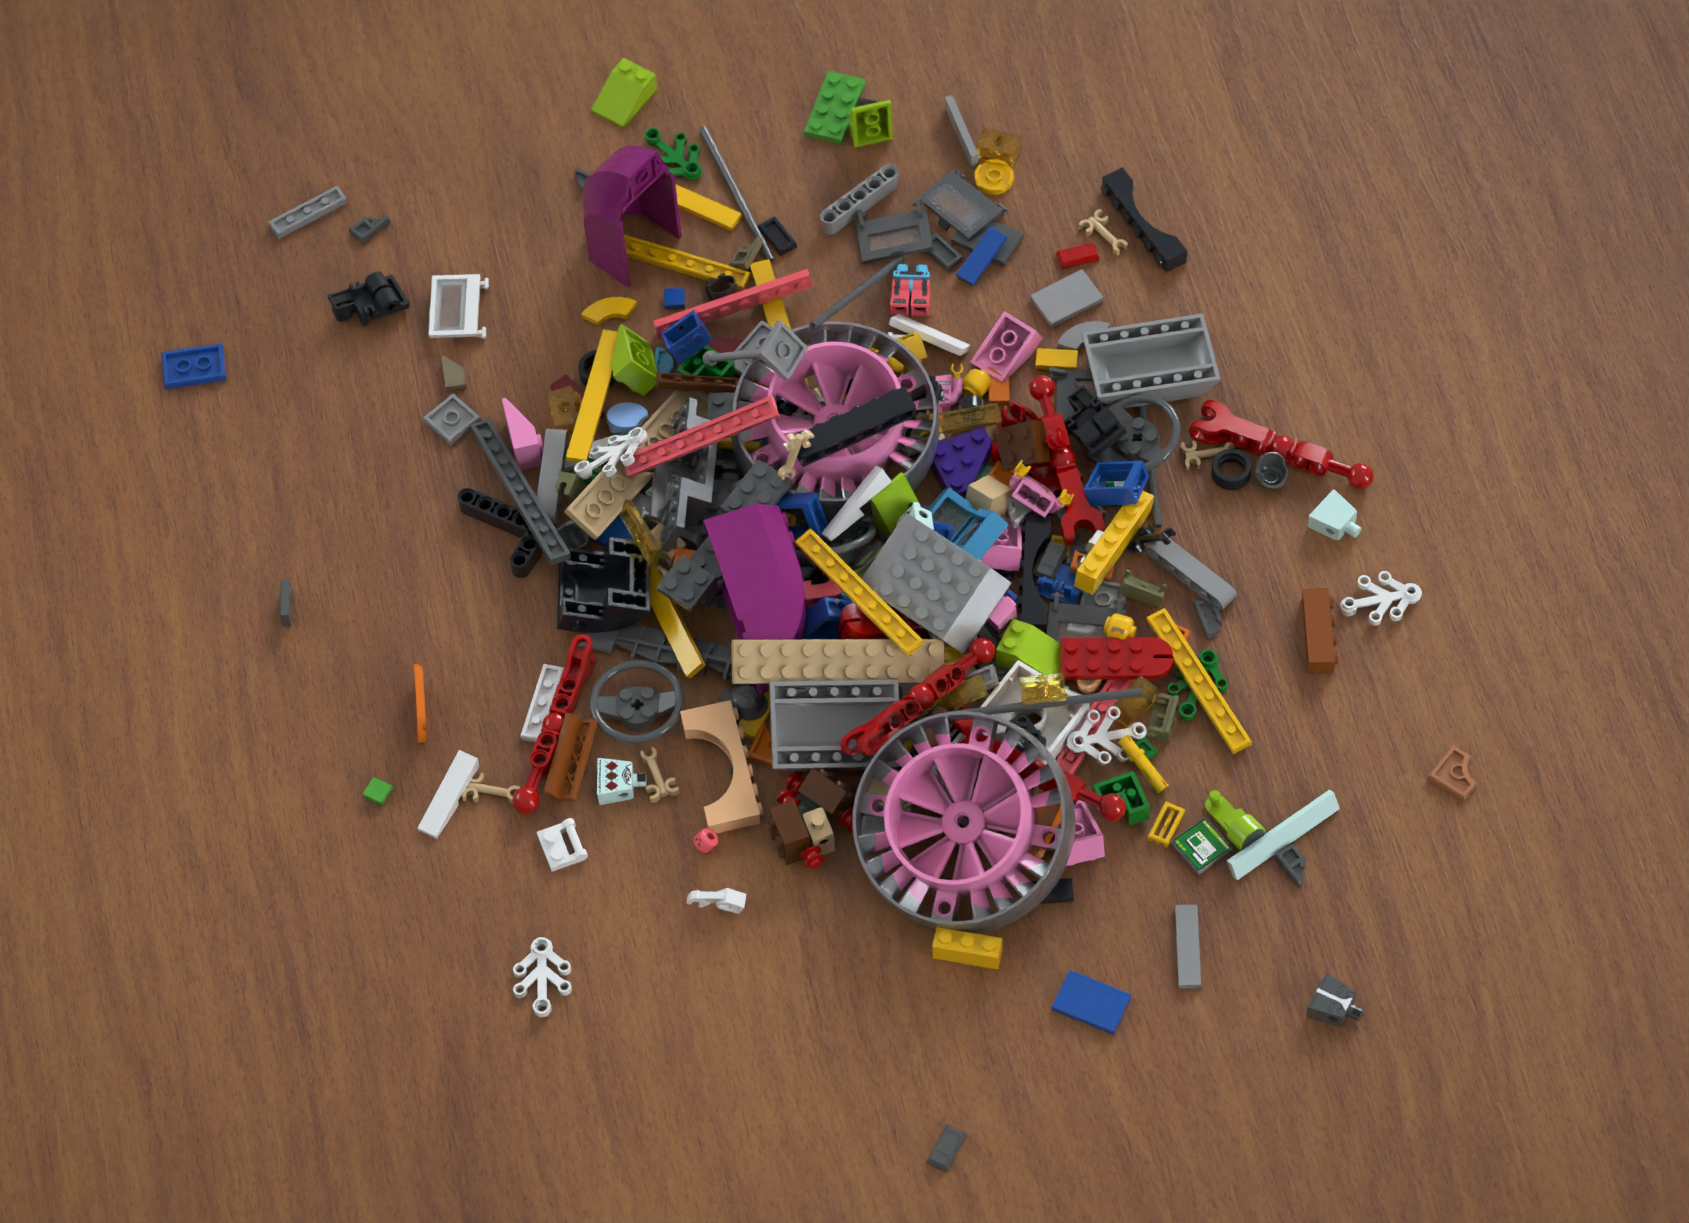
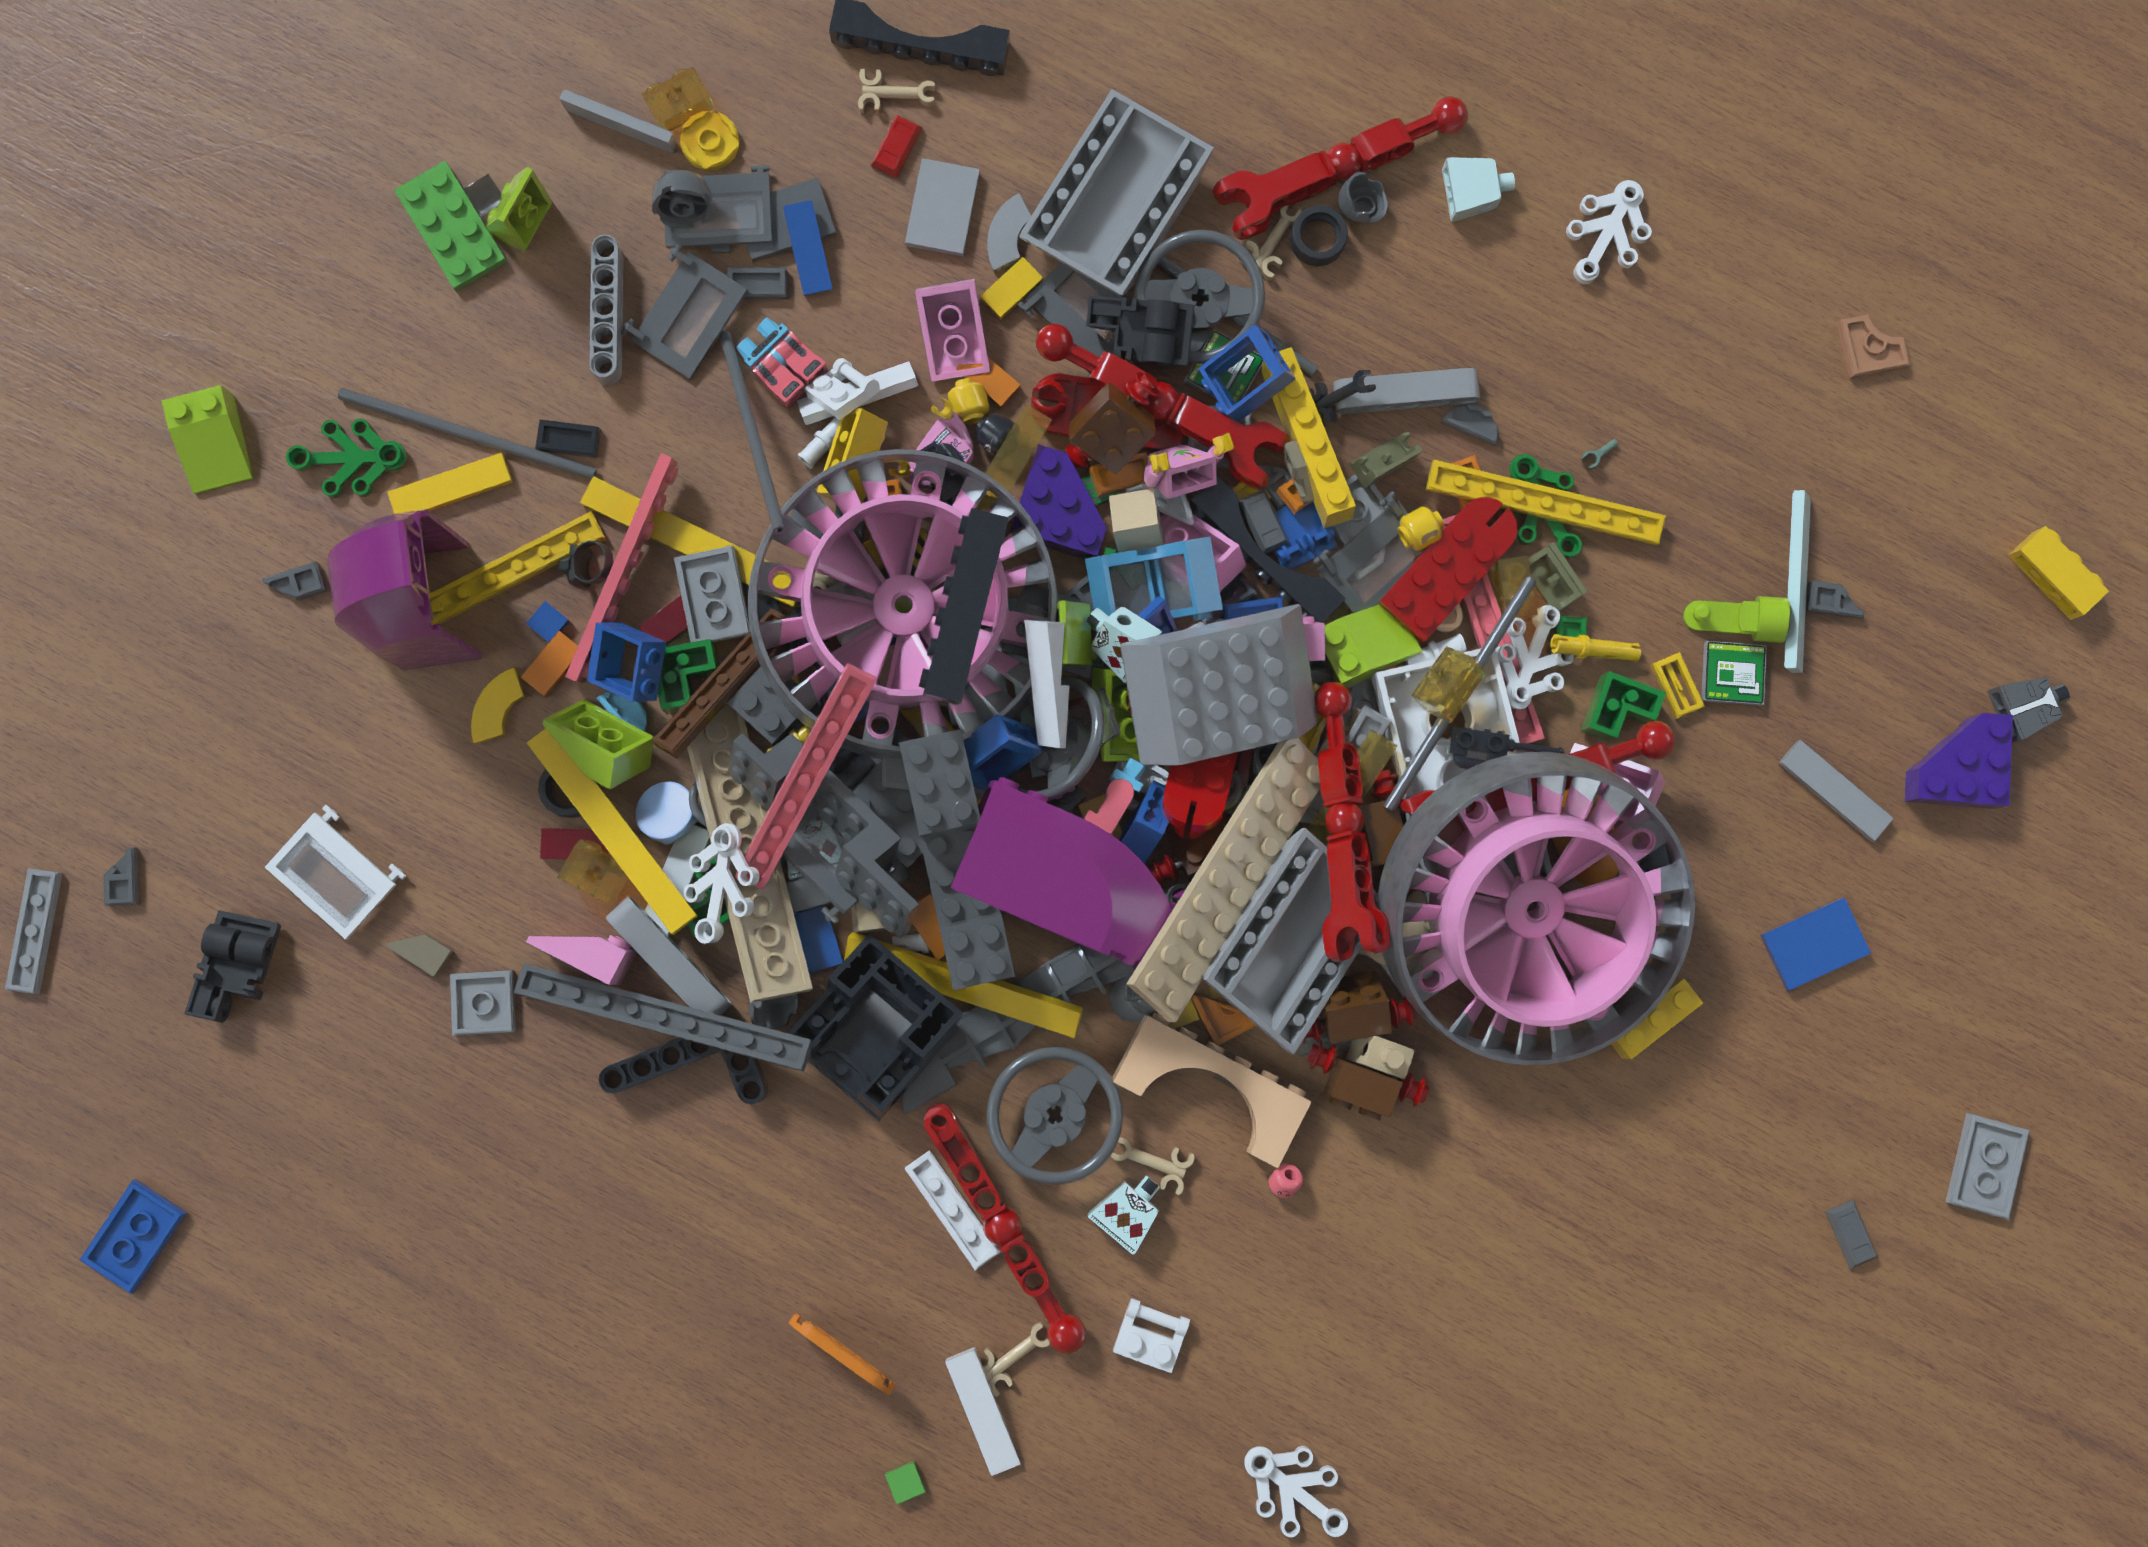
camera: 60 degrees left, 25 degrees up
(286, 602) = (566, 1391): dark grey tile -> none
(566, 758) = (1053, 1245): dark orange fence -> none
(573, 484) = (720, 955): olive hinge -> none
(640, 533) = (855, 940): clear yellow tile -> none
(646, 315) = (551, 664): none -> orange tile
(725, 899) = (1375, 1223): white piece -> none
(745, 255) = (564, 496): dark tan tile -> none
(780, 350) = (797, 605): light grey tile -> none
(794, 446) = (944, 704): tan bar -> none
(859, 592) = (1168, 779): yellow tile -> none
(916, 322) = (836, 396): none -> white plate
(946, 181) = (682, 199): none -> dark grey cylinder
(1053, 1187) = (1987, 1166): none -> light grey tile
(1248, 690) = (1599, 453): none -> sand green hand
(1266, 995) = (1966, 766): none -> dark purple brick
(1318, 630) = (1593, 327): dark orange brick -> none
(1426, 960) = (2058, 573): none -> yellow brick

